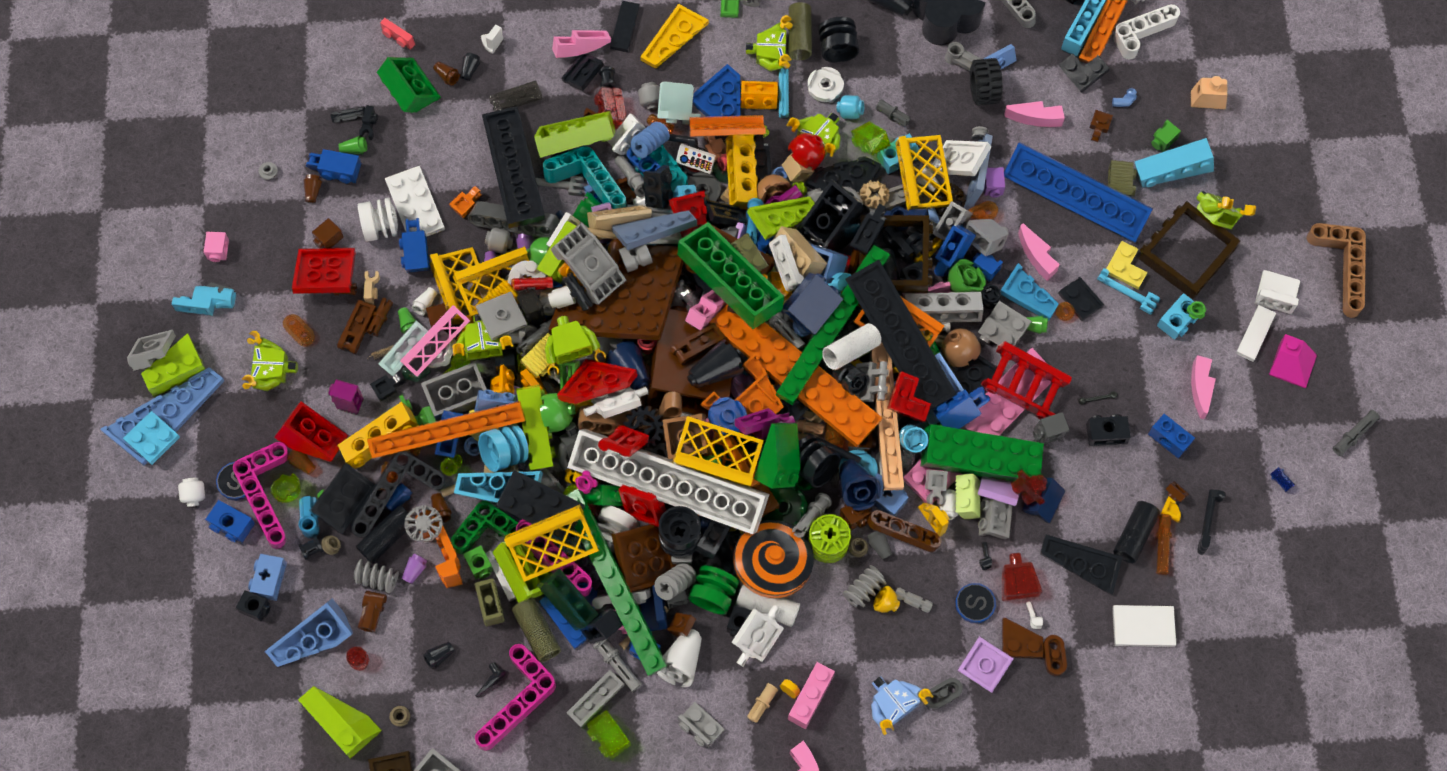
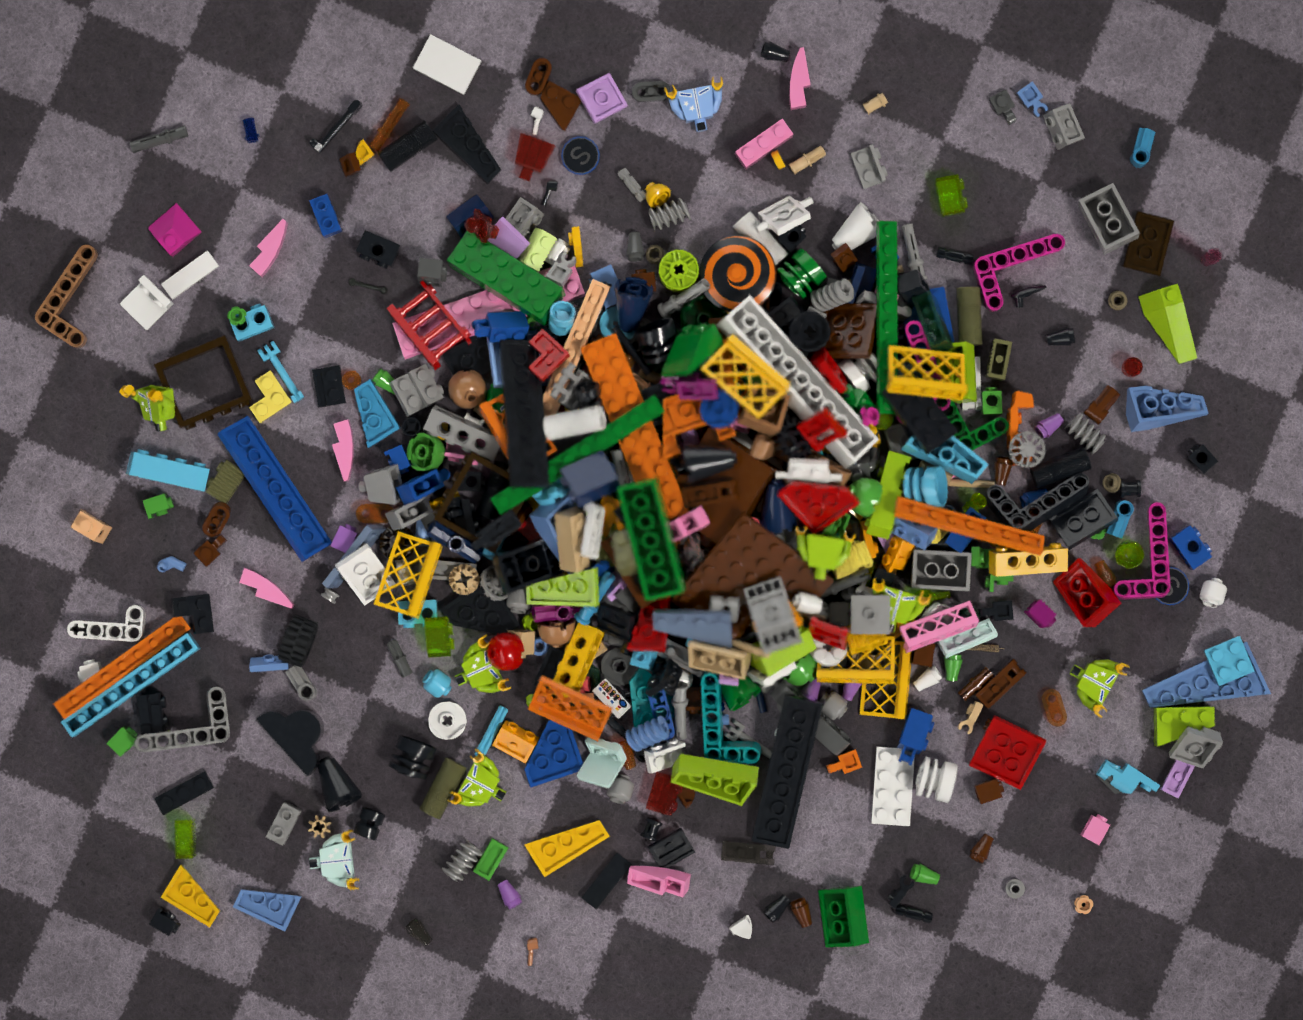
camera: 155 degrees left, 20 degrees up
(159, 318) = (1177, 778): none -> lavender plate
(197, 181) = (1088, 904): none -> light nougat plate
(271, 585) = (1180, 468): medium blue brick -> none
(335, 165) = (949, 860): blue brick -> none
(402, 37) = (827, 970): coral plate -> none
(576, 682) = (955, 256): none -> black axle
(577, 291) = (794, 596): black pin -> none
(595, 698) = (946, 232): light grey plate -> none
(903, 534) = (609, 246): reddish brown beam -> none
(1110, 147) = (217, 518): none -> reddish brown plate

